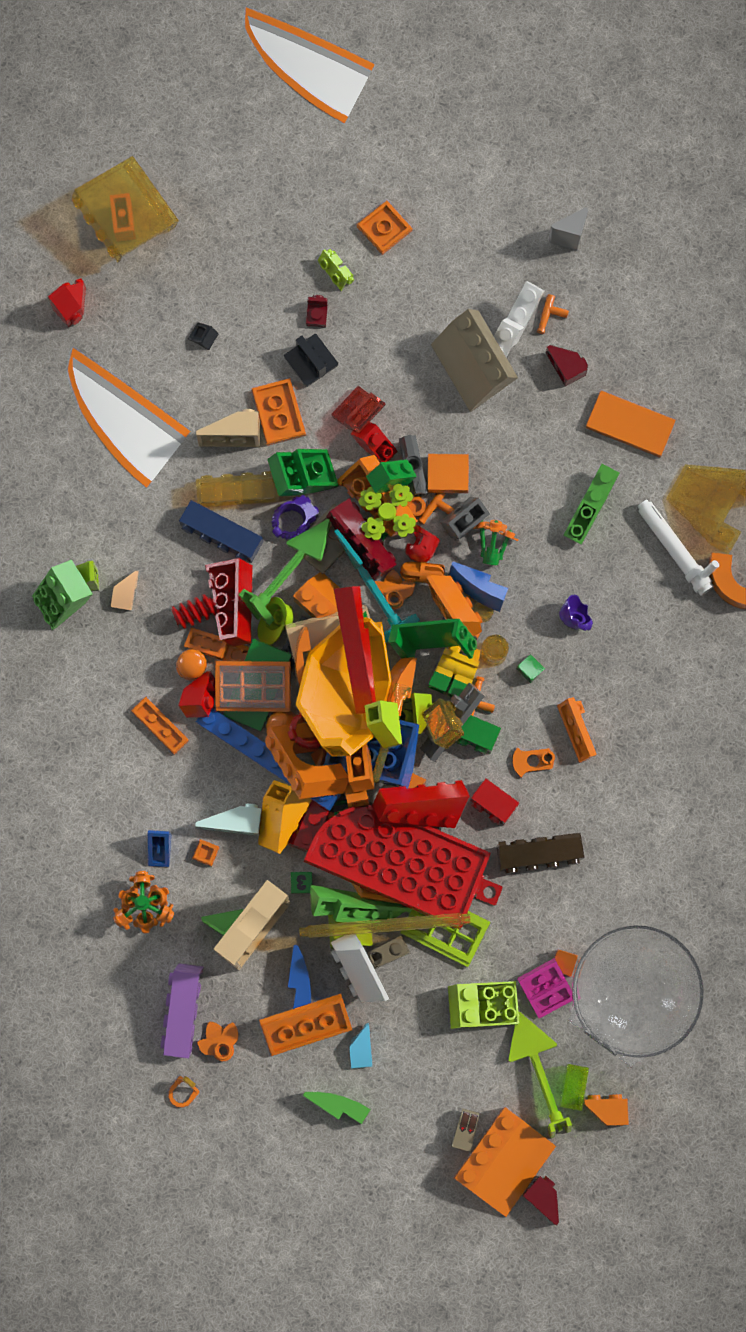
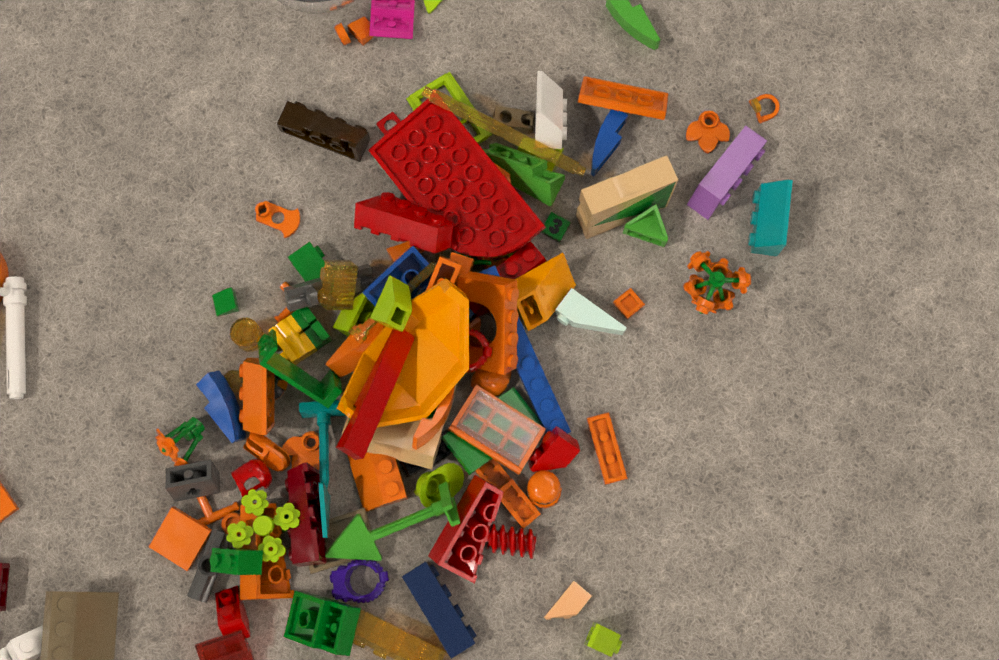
camera: 150 degrees left, 0 degrees up
(61, 593) = (635, 633): bright green slope -> none
(126, 988) = (770, 217): none -> teal slope
(159, 848) = (670, 330): blue slope -> none
(361, 1049) = (585, 55): medium azure slope -> none
(483, 1004) = (457, 32): lime slope -> none
(494, 802) = (336, 197): red brick -> none
(571, 715) = (219, 221): orange hinge -> none
(575, 614) = (151, 326): dark purple hair -> none
(577, 946) = (342, 34): none -> orange tile
(591, 504) = (64, 425): bright green slope -> none

